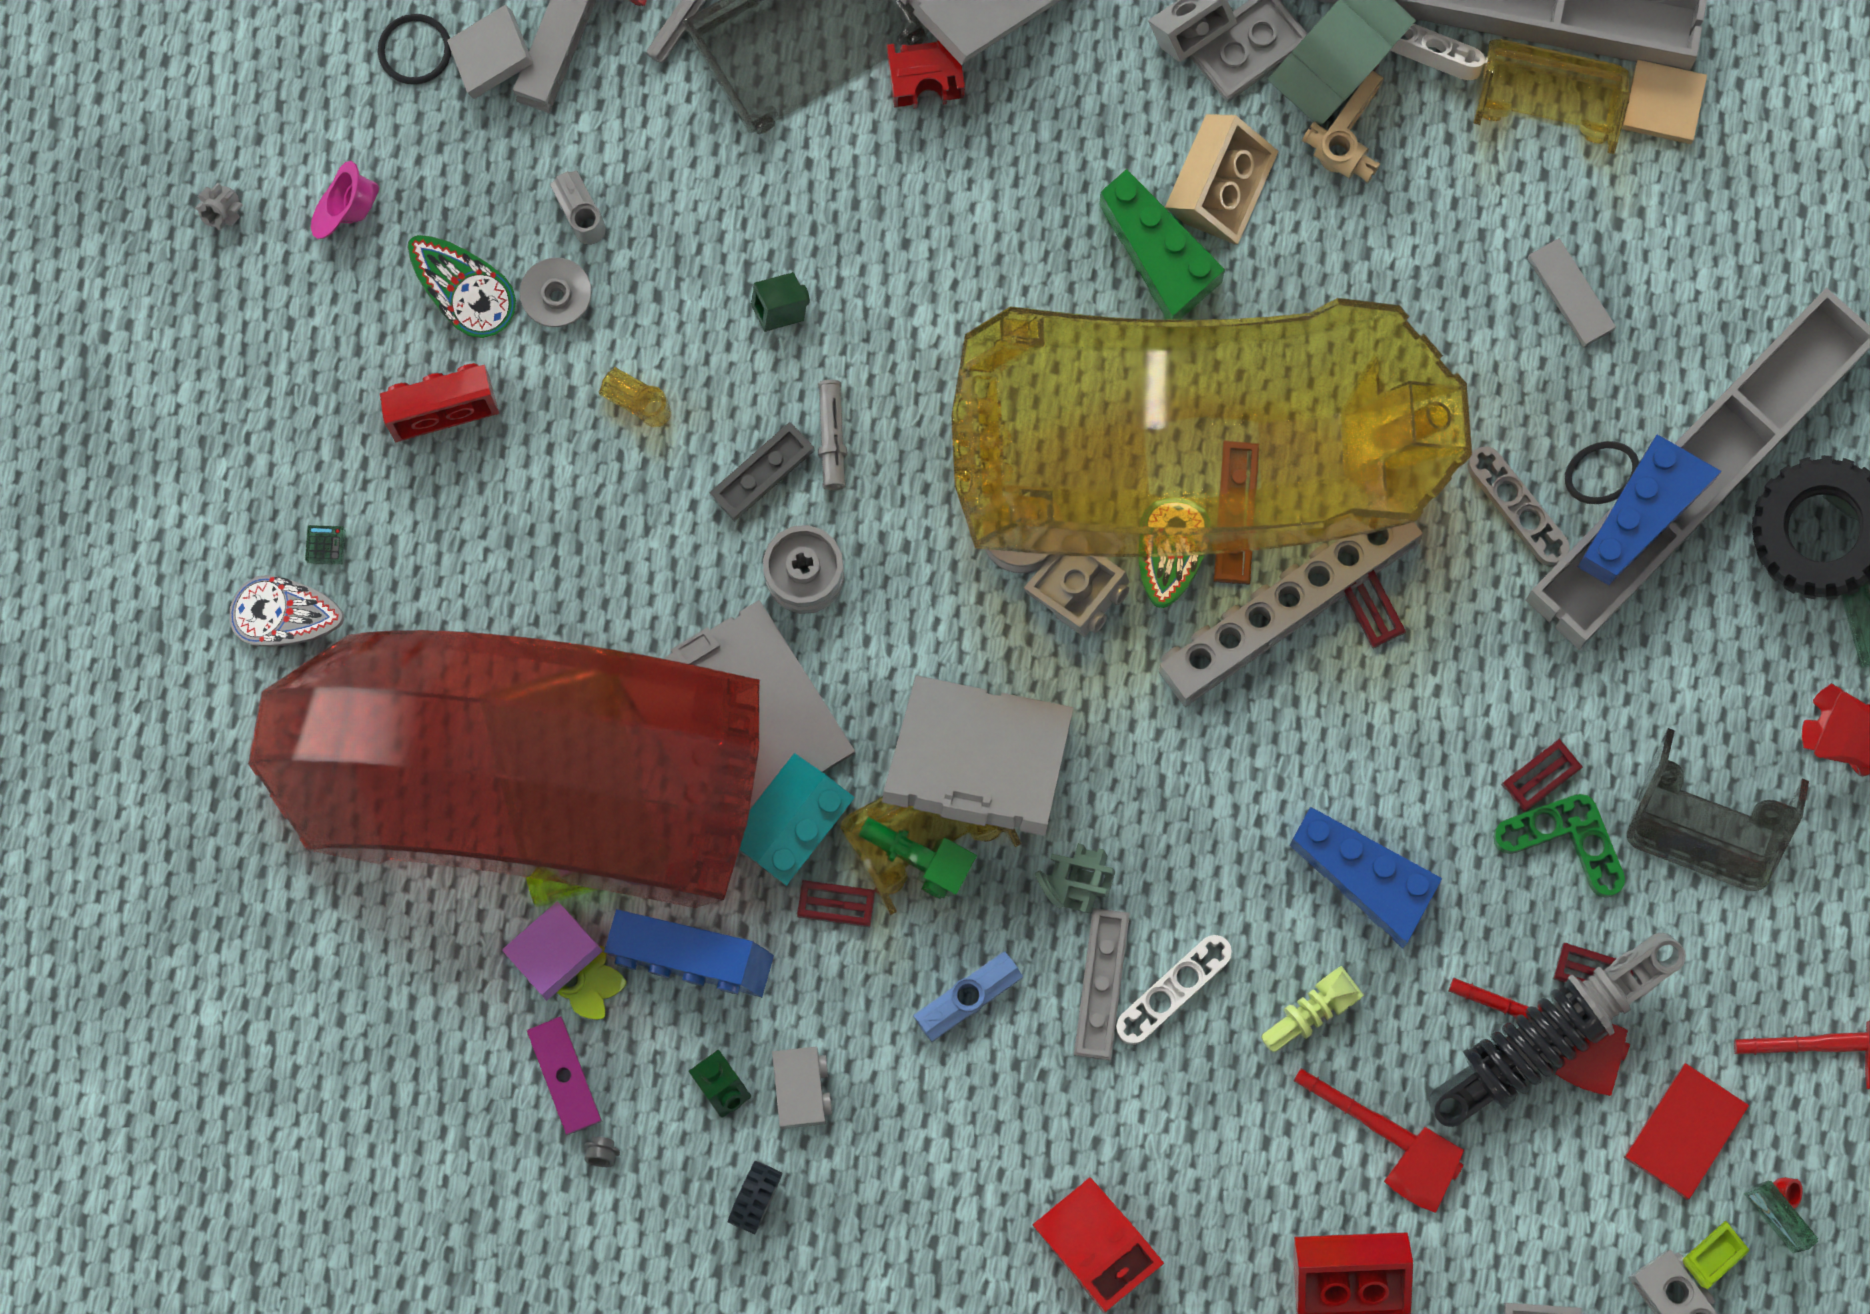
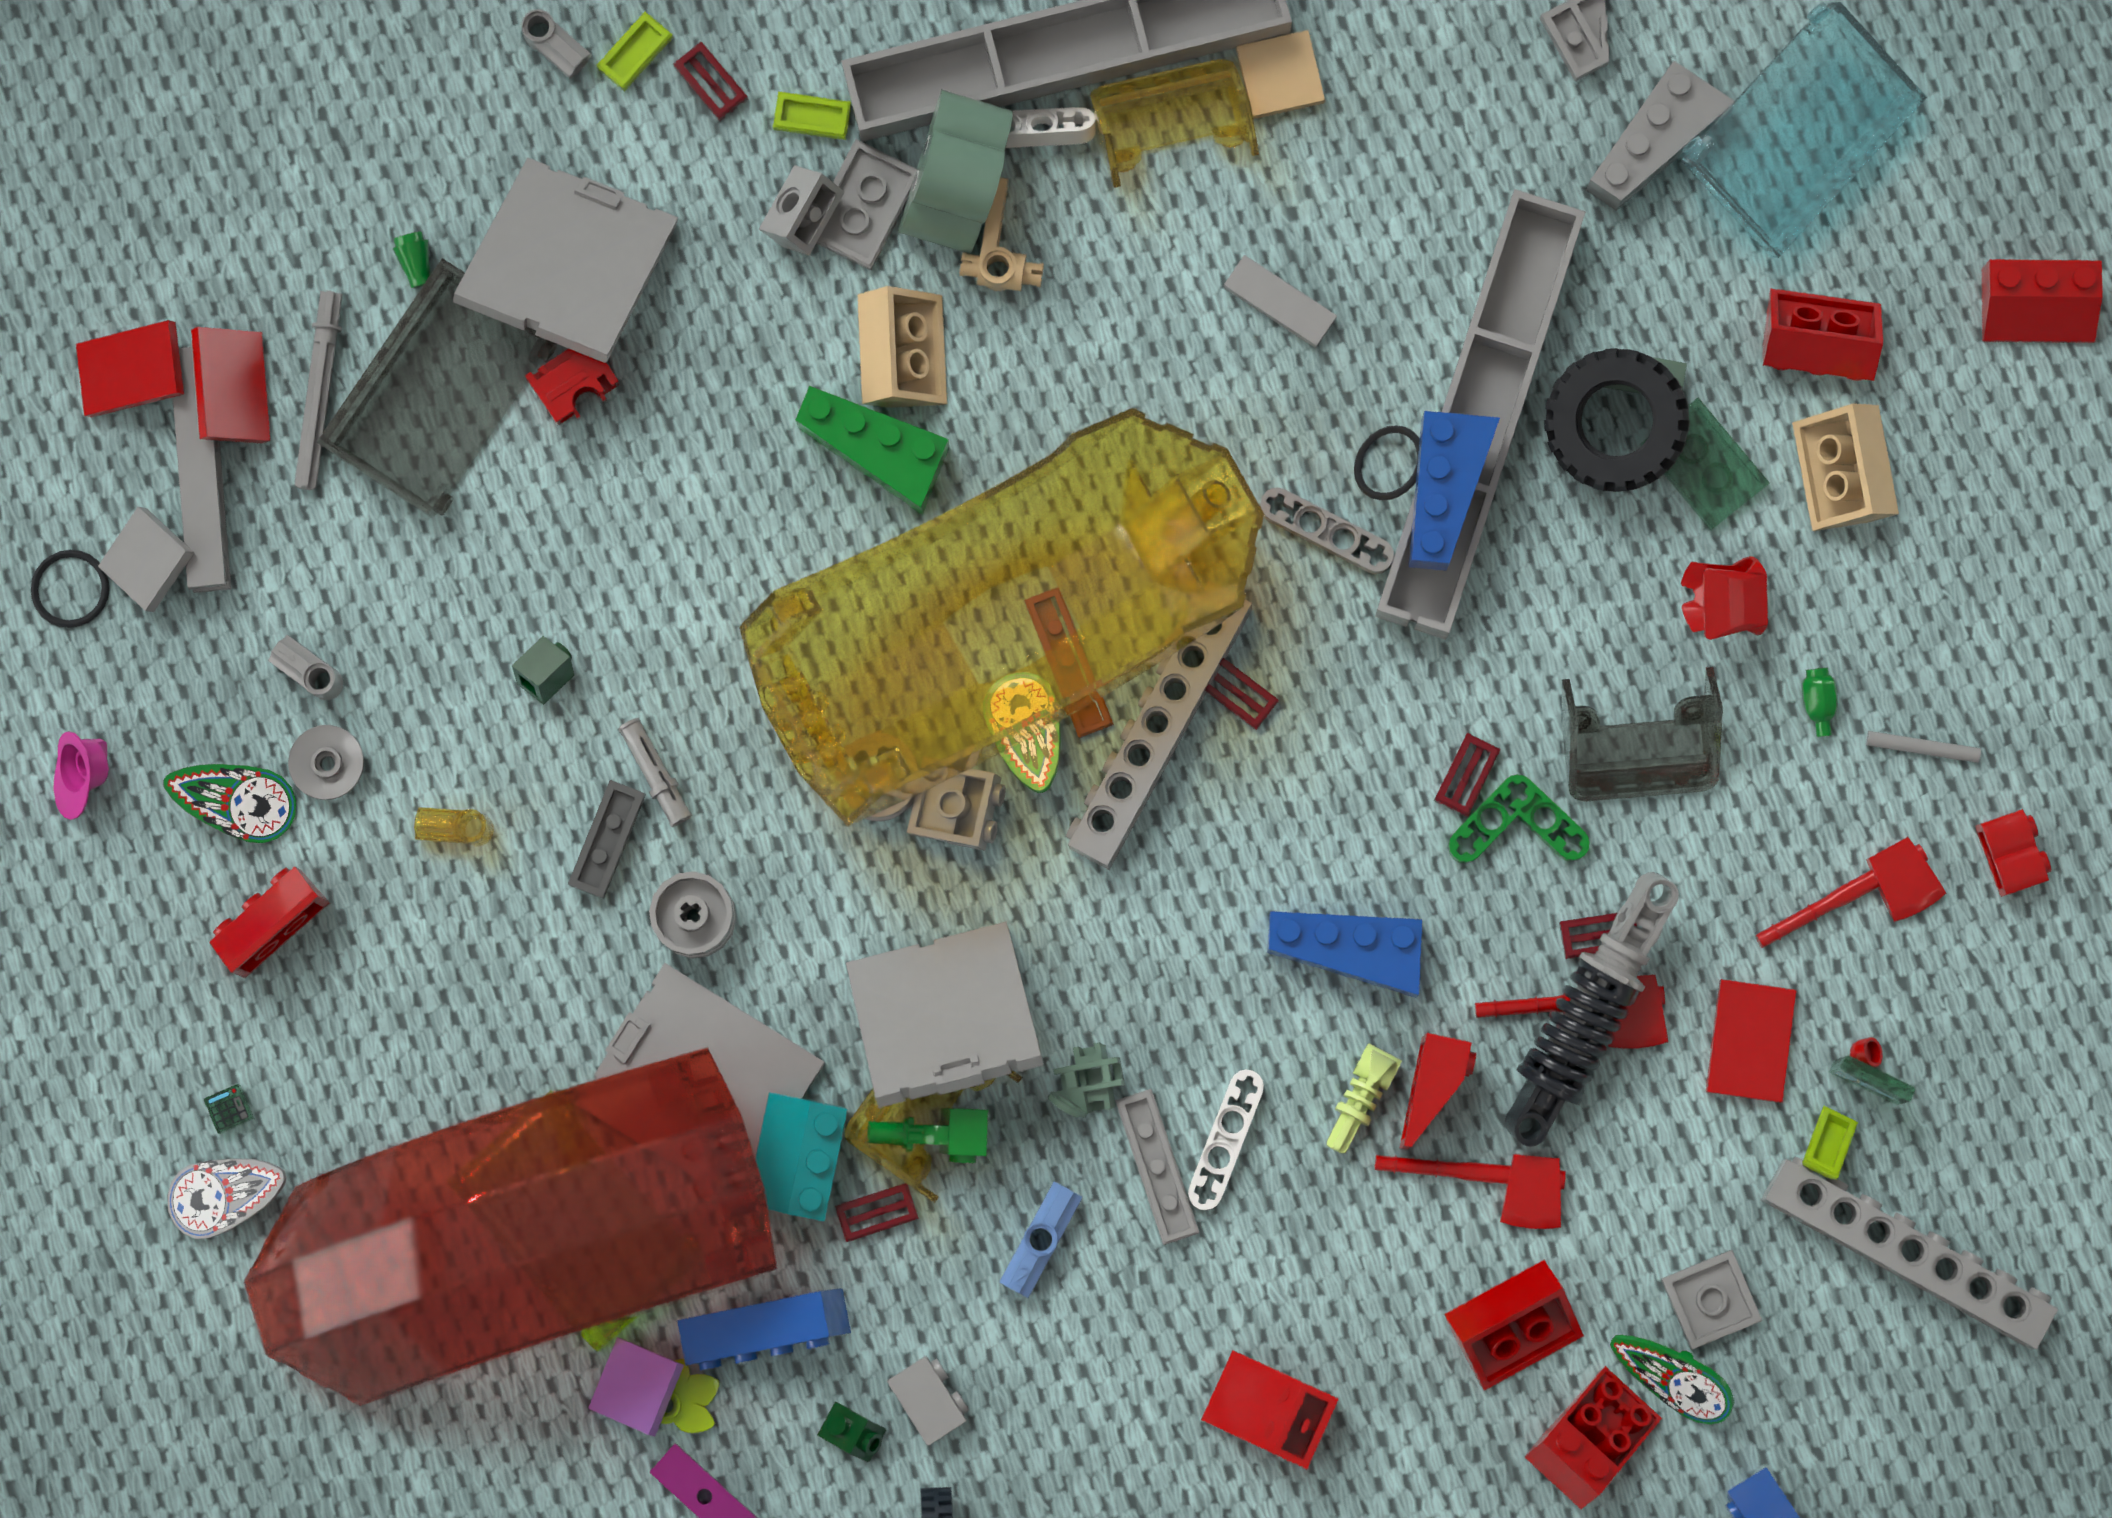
camera: 25 degrees left, 5 degrees up
(1392, 1021) = (1437, 1075): none -> red slope

